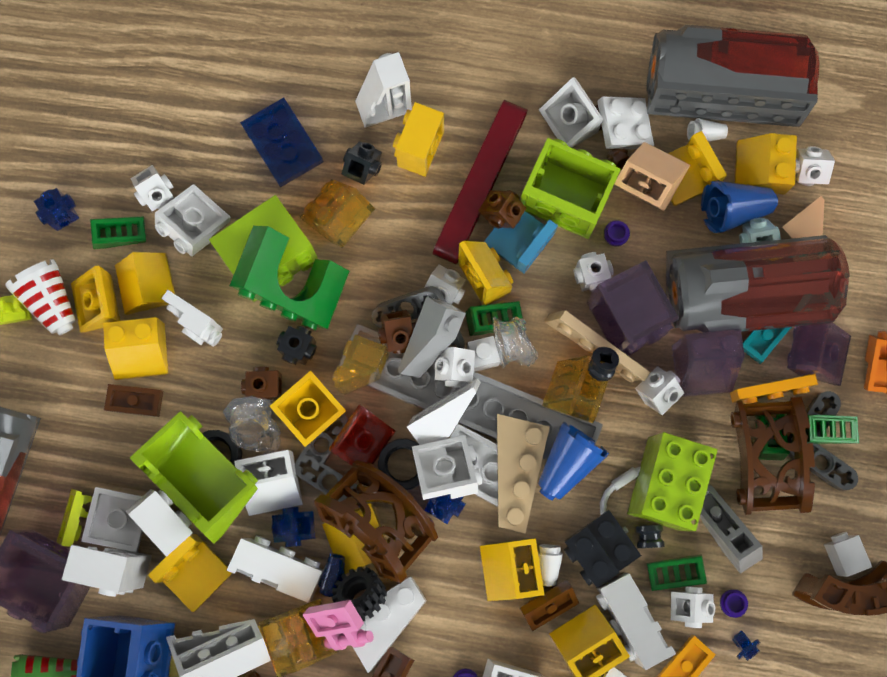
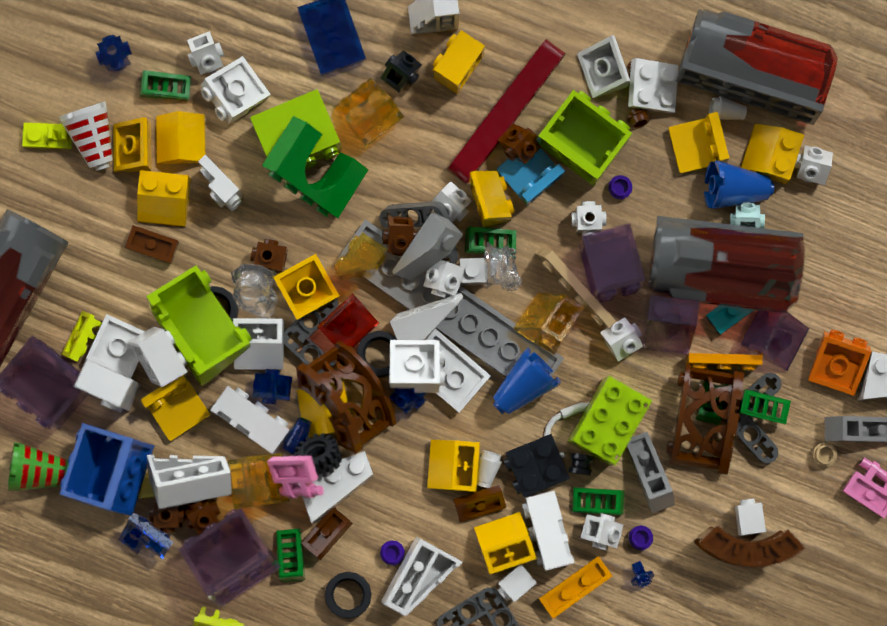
camera: 10 degrees right, 5 degrees up
(301, 353) = (311, 235): black brick -> none
(518, 468) = (481, 374): tan wing -> none
(605, 370) = (572, 311): black wheel -> none
(652, 175) = (663, 142): light nougat slope -> none
(806, 223) = (793, 217): light nougat slope -> none

